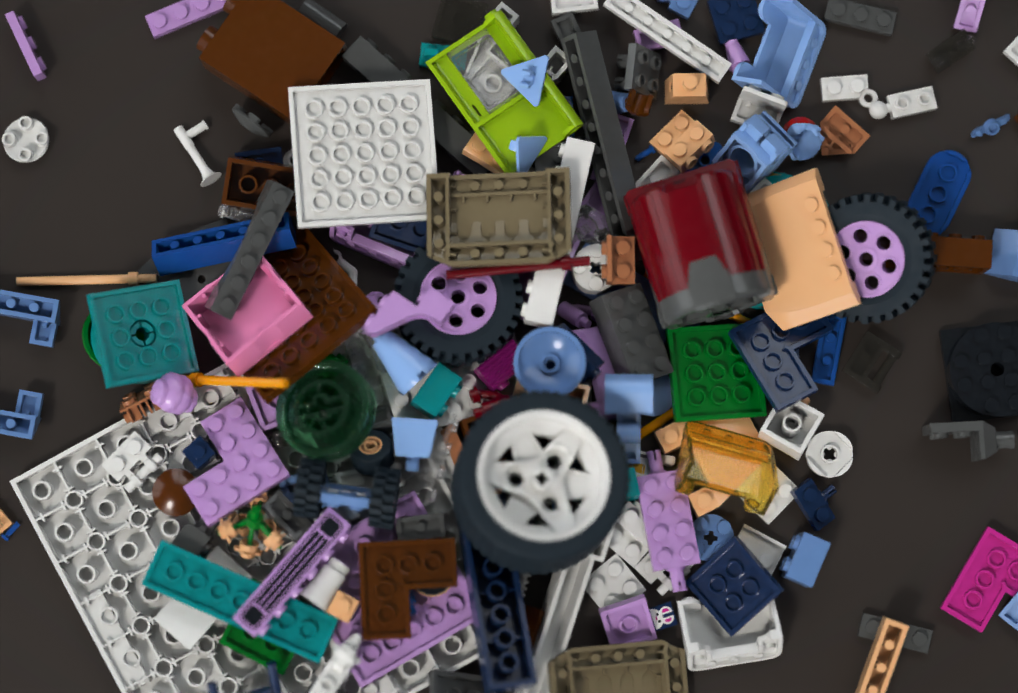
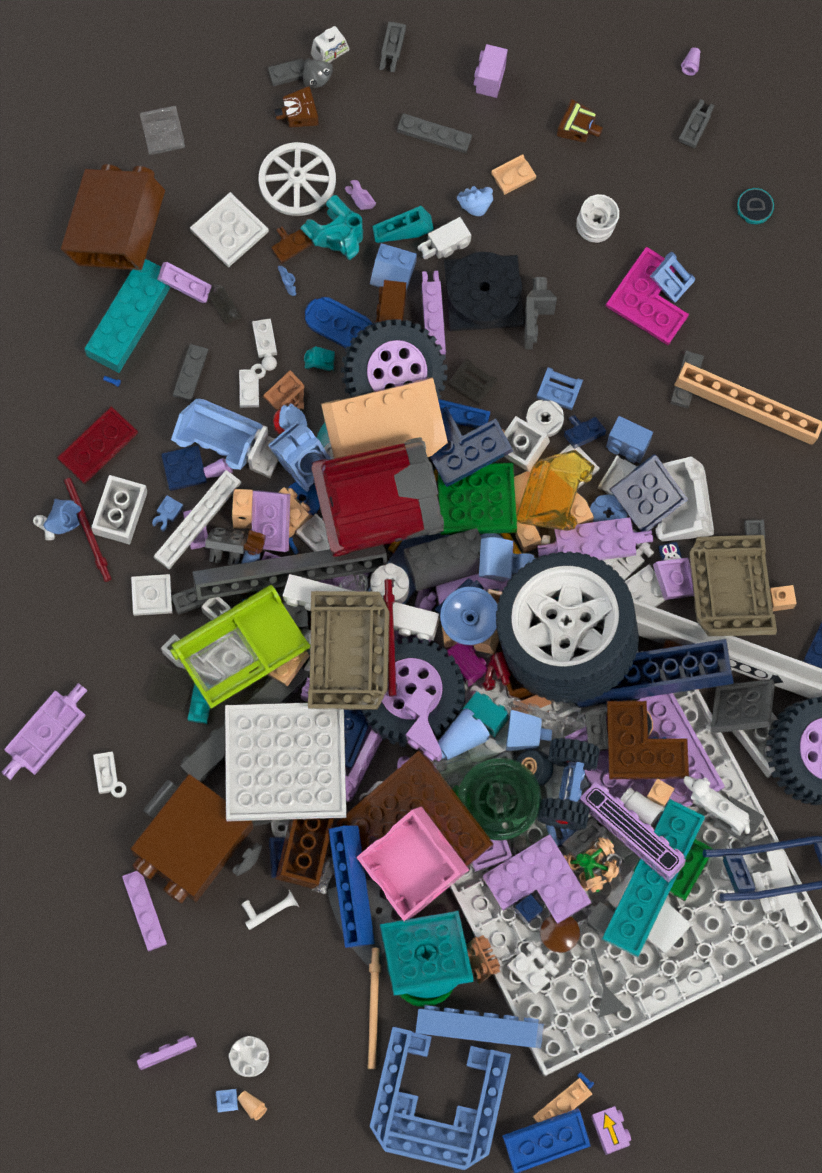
camera: 90 degrees left, 10 degrees down
(57, 402) = (479, 1028): none -> medium blue brick
(95, 554) = (609, 1002): none -> dark grey piece
(174, 393) = (478, 927): lavender hair -> none
(200, 379) = (466, 909): light orange bar -> none
(265, 220) = (395, 876): dark grey arch -> none
(526, 150) = (291, 628): light blue piece -> none
(528, 78) = (231, 624): light blue piece -> none
(619, 260) = (386, 562): nougat bracket -> none
(671, 122) = (272, 518): none -> lavender plate
(863, 468) = (560, 394): none -> medium blue plate
(888, 171) = (319, 358): none -> teal bracket
(955, 308) = (433, 308): none -> lavender hinge

